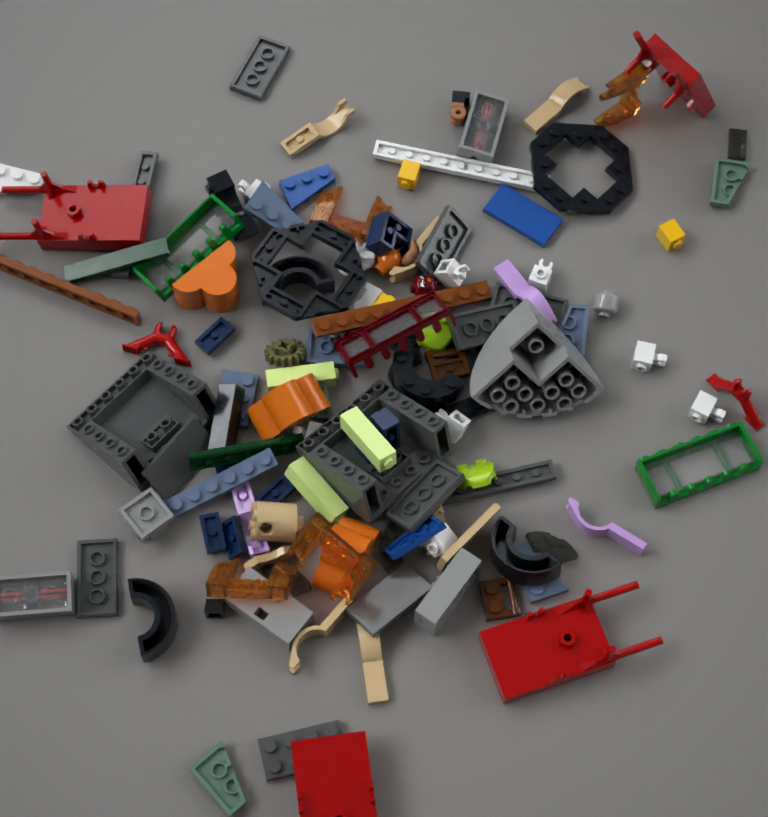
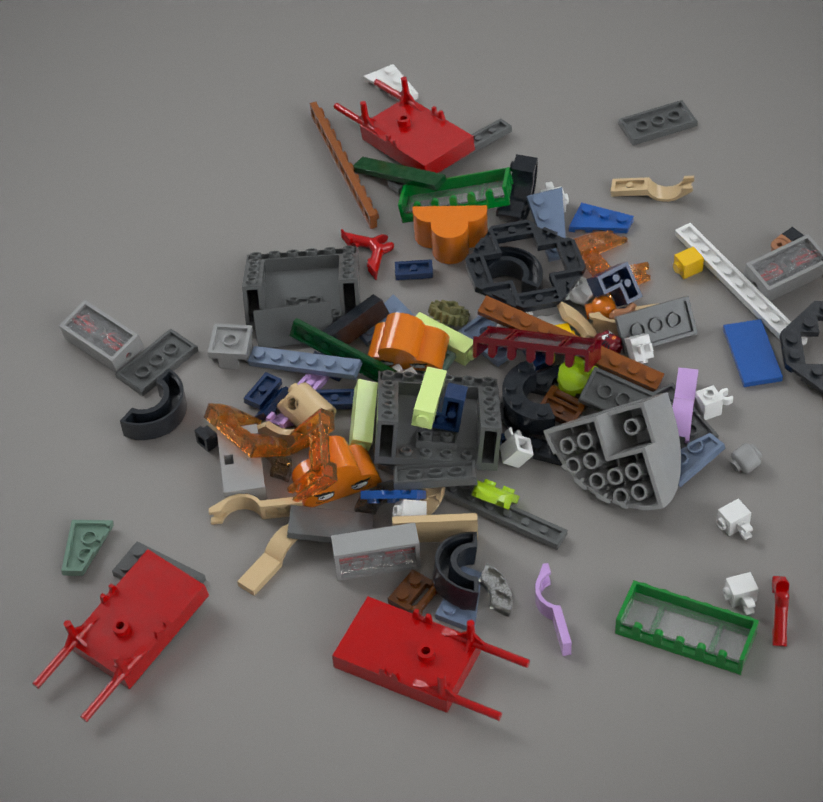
camera: 50 degrees right, 15 degrees down
(386, 285) = (576, 320): none -> tan tile

